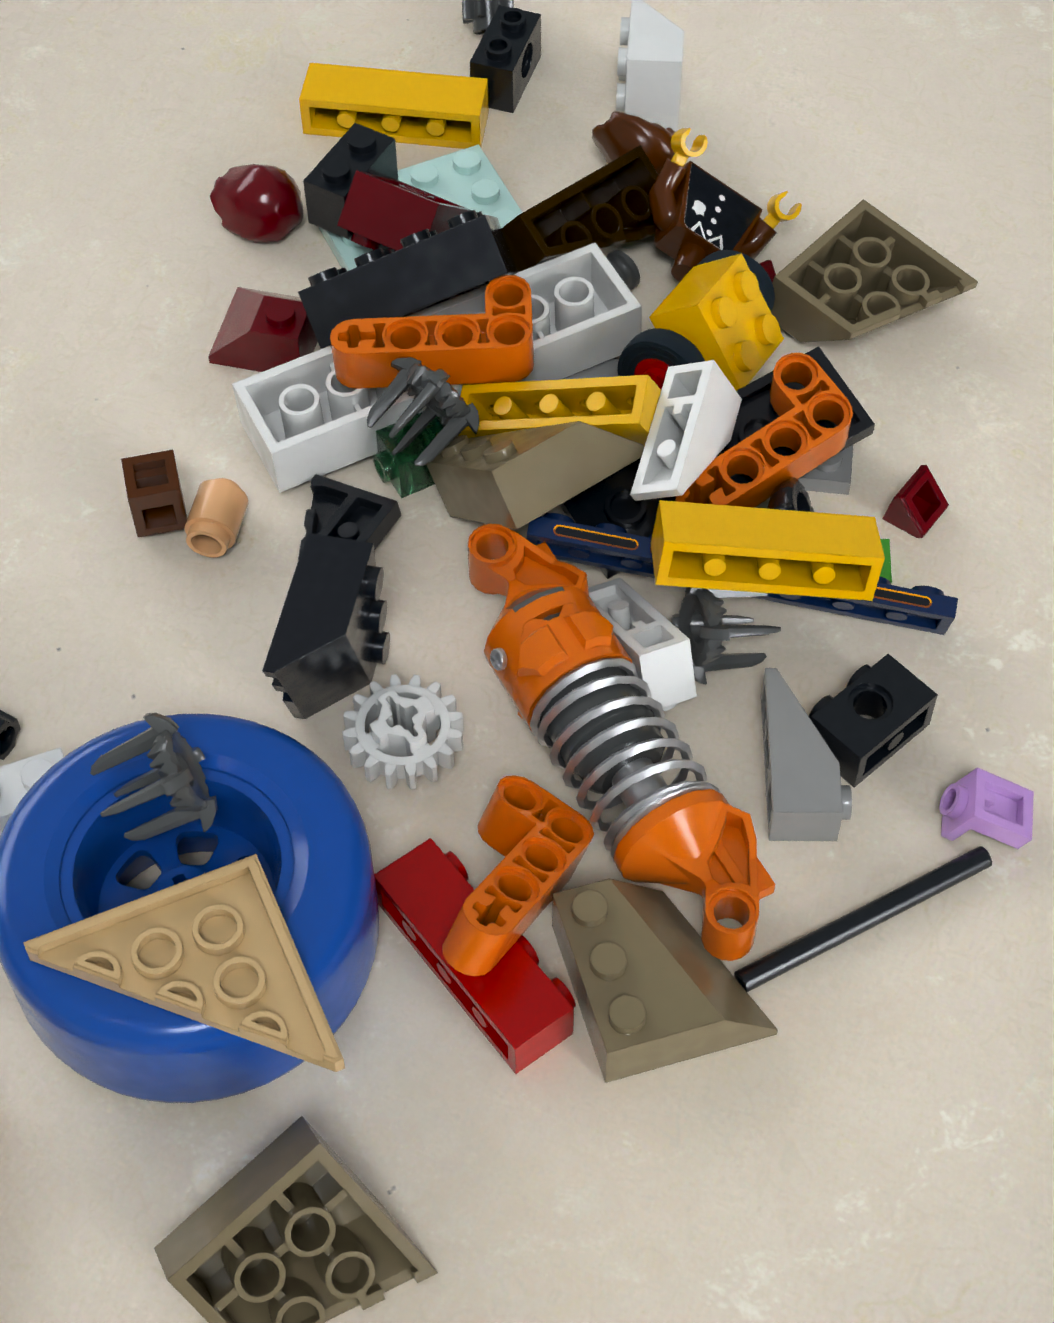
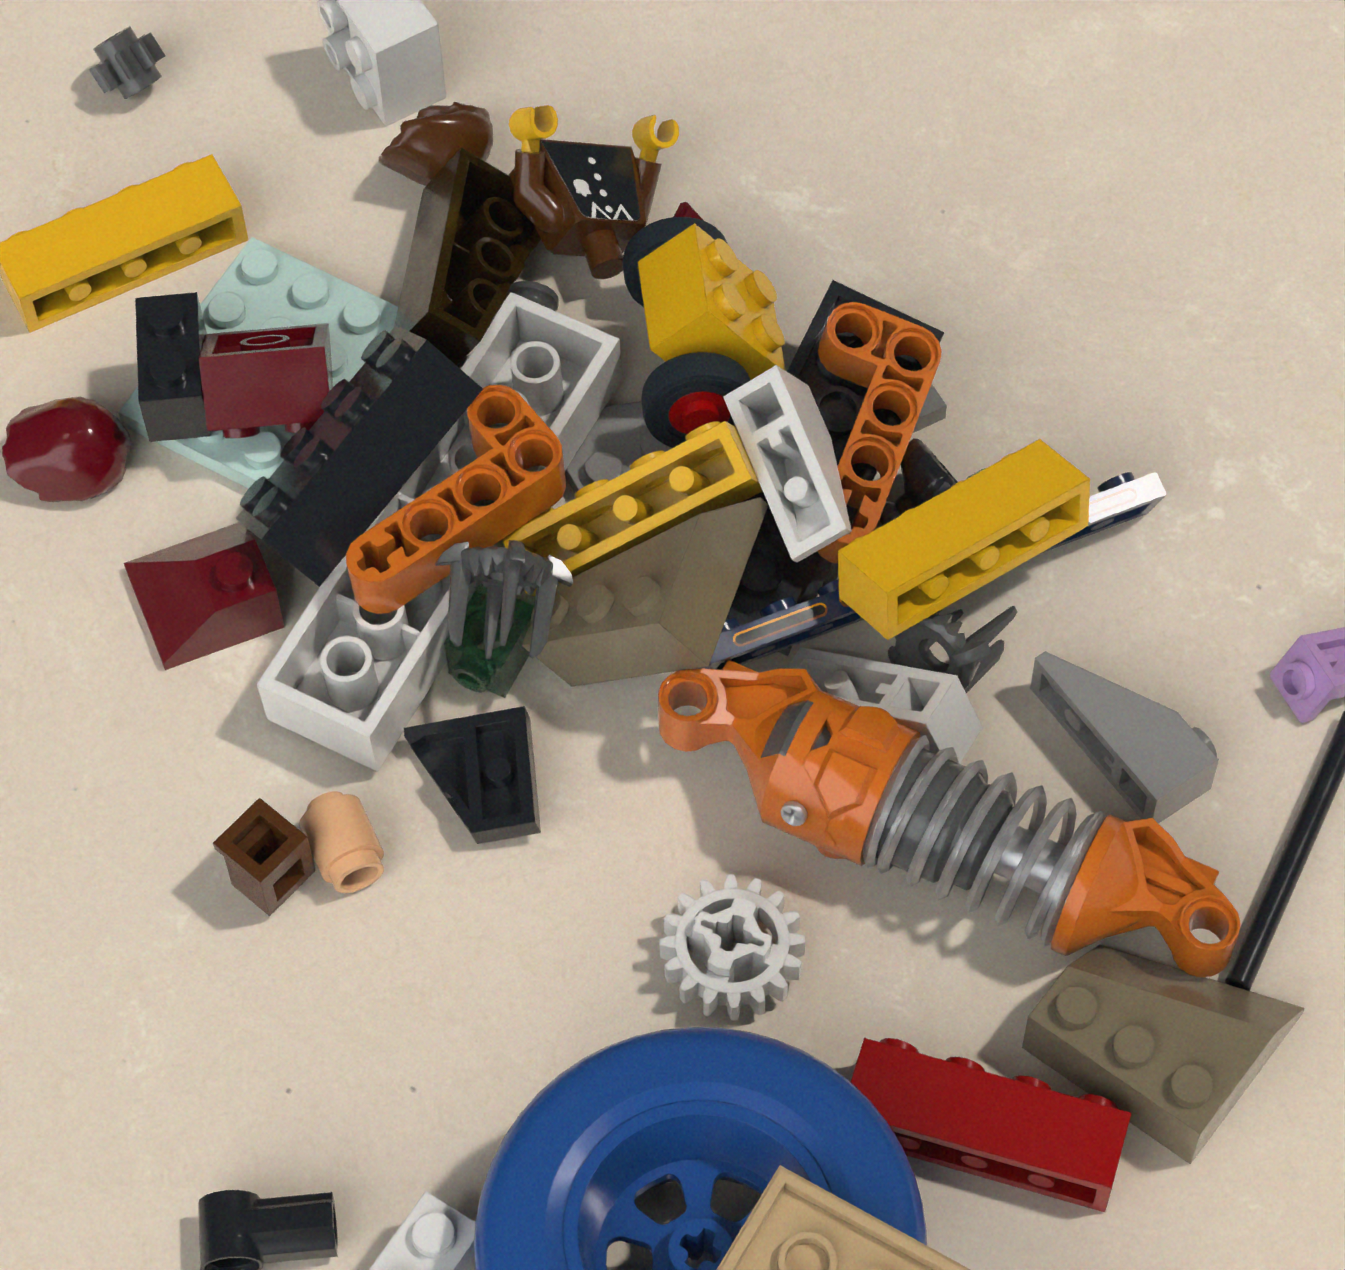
camera: 35 degrees left, 5 degrees up
(174, 774) = (608, 1132): dark grey piece -> none
(329, 626) = (600, 879): black wedge -> none
(508, 56) = (200, 107): black brick -> none
(541, 852) = (982, 980): orange beam -> none
(861, 279) = (801, 172): dark tan wedge -> none
(888, 694) = (1166, 613): black brick -> none
(917, 504) = (1023, 390): dark red slope -> none

